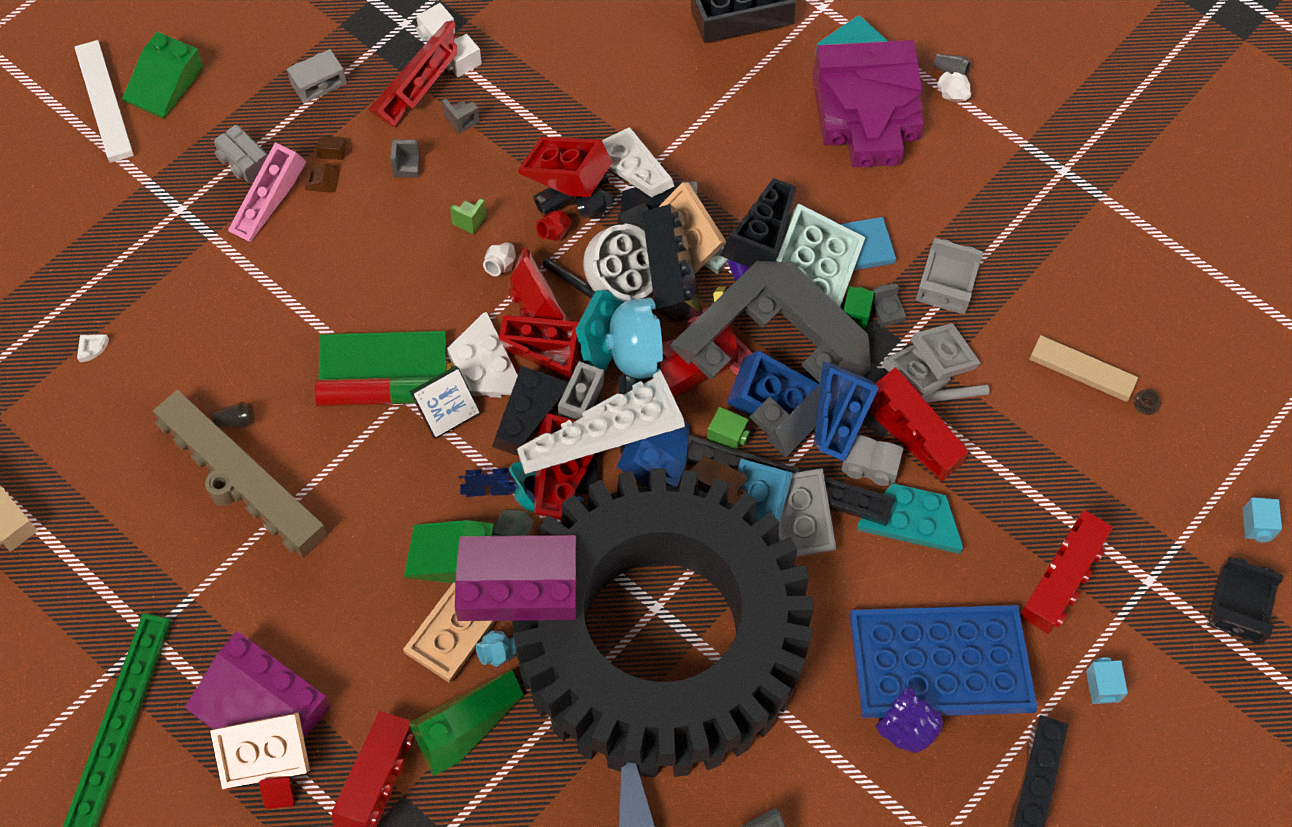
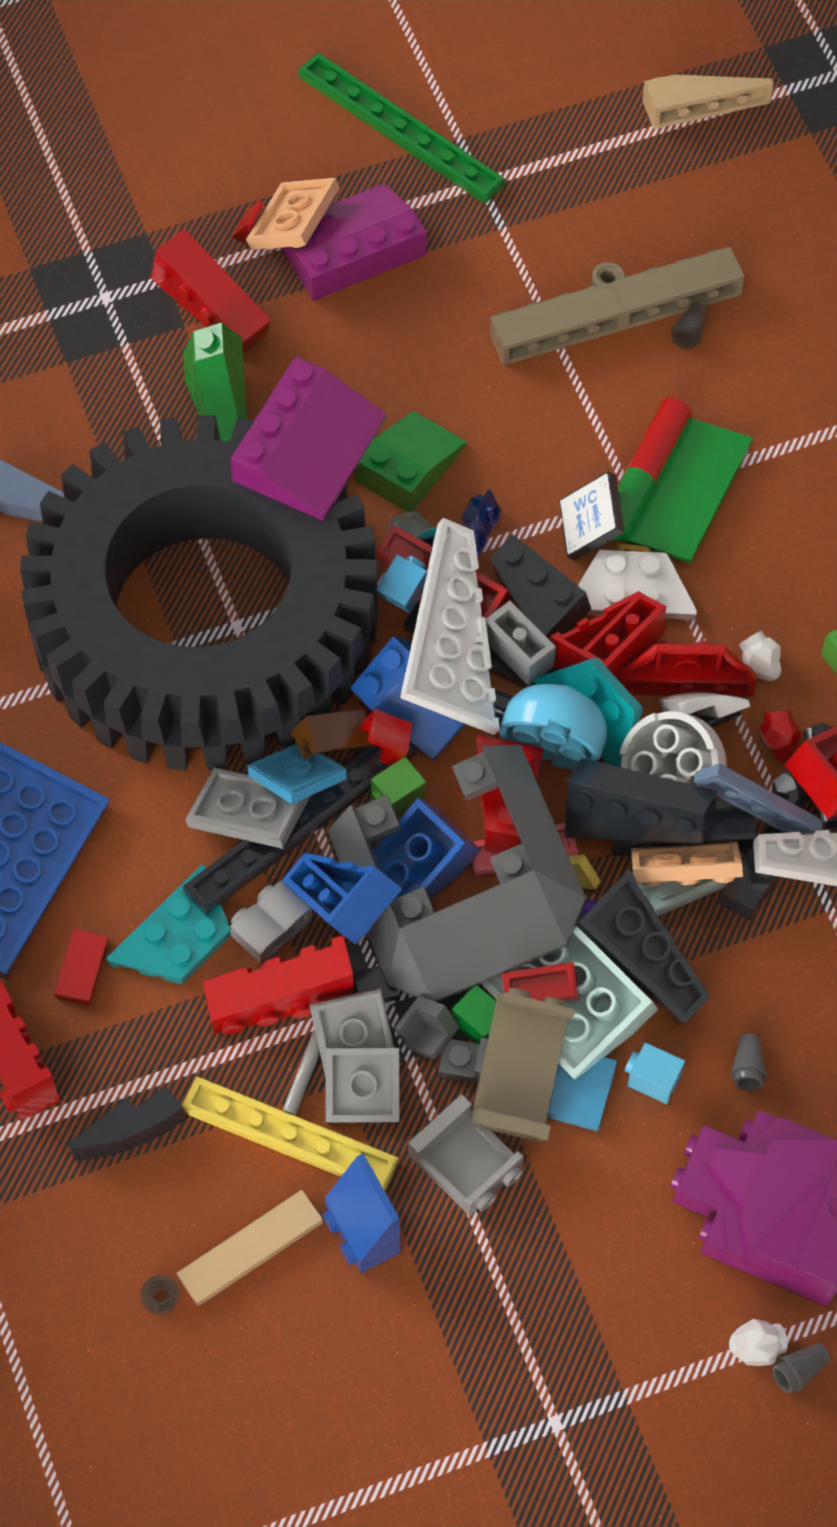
camera: 120 degrees right, 0 degrees up
(563, 269) = (704, 703): none -> white slope
(577, 478) = (403, 582): none -> dark azure brick
(625, 201) = (757, 800): none -> sand blue tile
(701, 440) = (389, 733): none -> red panel
(791, 157) = (749, 1064): none -> dark grey cone
(823, 271) = (548, 981): none -> red tile
(830, 199) = (654, 1072): none -> medium azure brick
(885, 263) = (520, 1065): none -> dark tan panel
(885, 331) = (426, 1027): none -> dark grey panel
(976, 565) = (81, 967): none -> red tile
(1001, 384) = (282, 1131): none -> light yellow tile
(1033, 301) = (362, 1217): none -> blue slope
(1064, 472) = (128, 1127): none -> black slope

